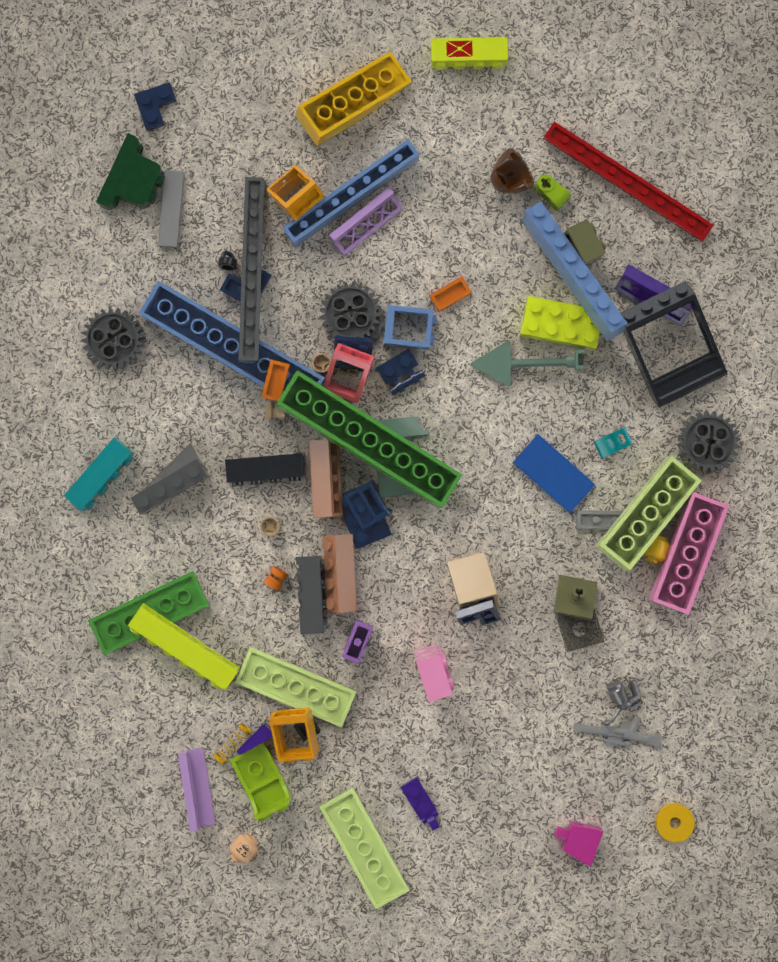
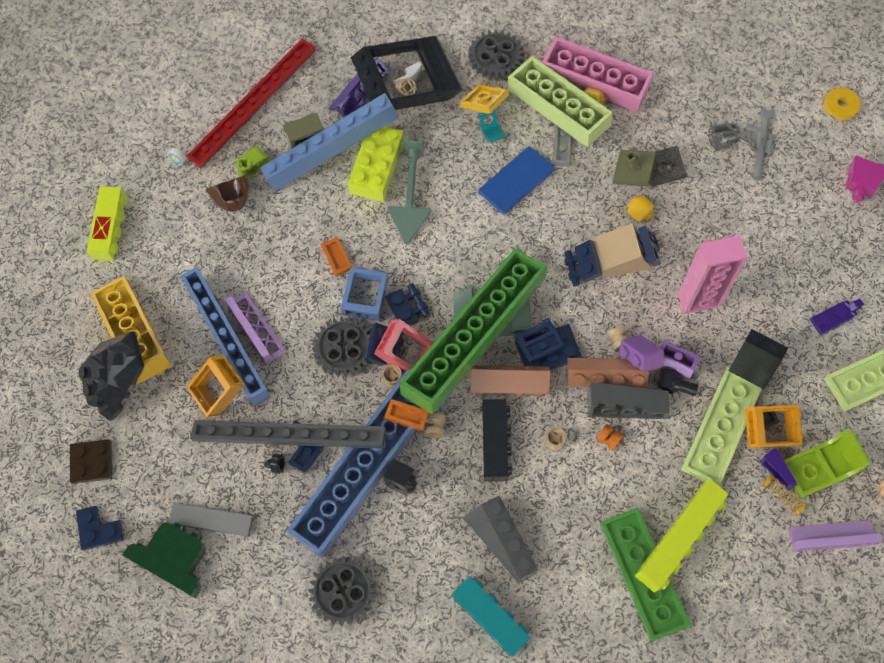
camera: 80 degrees left, 20 degrees down
(217, 381) = (400, 477): none -> black brick
(218, 86) = (90, 461): none -> dark brown plate
(300, 88) = (110, 372): none -> black wedge
(336, 638) = (671, 382): none -> black pin
(357, 606) = (642, 353): none -> medium lavender brick
(358, 719) = (758, 359): none -> black slope
(378, 585) = (616, 335): none -> tan wheel
(459, 550) = (588, 262): none -> dark blue plate
(526, 604) = (640, 208): none -> yellow head
(554, 111) = (177, 156): none -> tile
(647, 432) = (484, 98): none -> yellow tile
(652, 340) = (402, 89): none -> tan wheel
(674, 351) = (412, 72): none -> white slope

